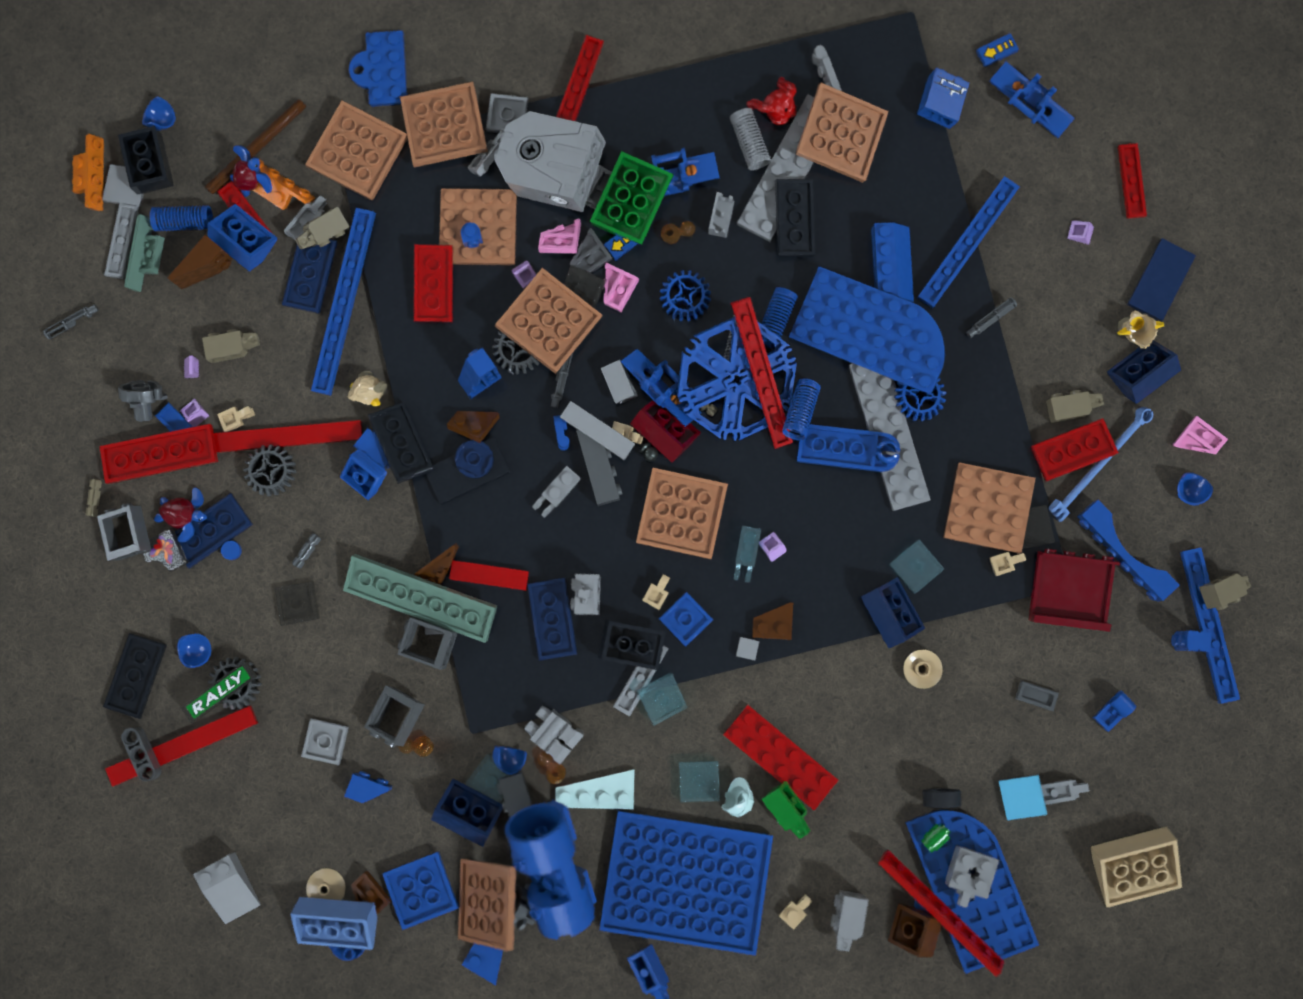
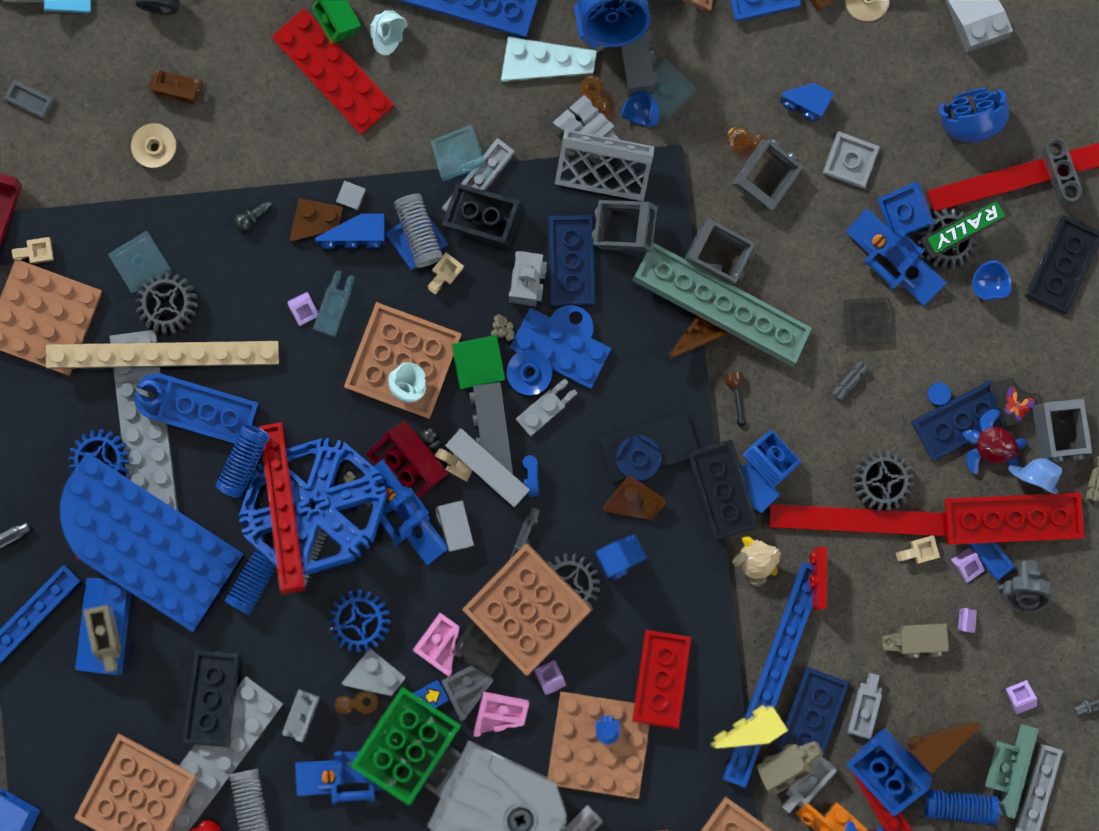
camera: 175 degrees left, 0 degrees up
(140, 492) = (1040, 473): none -> medium blue piece
(141, 313) = (1022, 697): none -> lavender slope
(219, 785) = (985, 123): none -> blue cylinder
(266, 286) = (865, 708): none -> light grey hinge
(272, 701) = (906, 209): none -> blue tile
(273, 666) = (899, 250): none -> blue piece
(313, 378) = (818, 579): none -> red hinge
(351, 251) = (758, 729): none -> light yellow slope
(403, 537) = (733, 381): none -> hinge
(467, 812) = (696, 57): dark blue slope -> none
(489, 575) = (638, 320): red tile -> none
(490, 652) = (645, 228): none -> dark grey window
(532, 715) = (604, 147): none -> light grey fence
(550, 546) = (563, 343): none -> blue plate
(577, 509) = (518, 375): none -> blue dish
(601, 552) = (502, 328): none -> dark tan plant
(618, 520) = (478, 361): none -> green tile
(666, 255) = (374, 675): none -> light grey wing
(673, 490) = (407, 382): none -> light aqua piece
(683, 625) = (406, 204): none -> light grey piece
(699, 781) = (429, 57): clear light blue plate -> none
(732, 619) = (360, 230): none -> blue slope
(834, 613) = (244, 221): none -> pearl dark grey bar
(883, 488) = (161, 354): none -> tan plate
(889, 248) = (103, 635): none -> dark tan hinge
(893, 613) = (176, 211): dark blue slope -> none
(895, 537) = (160, 311): none -> dark grey gear
(912, 724) = (175, 86): none -> reddish brown hinge

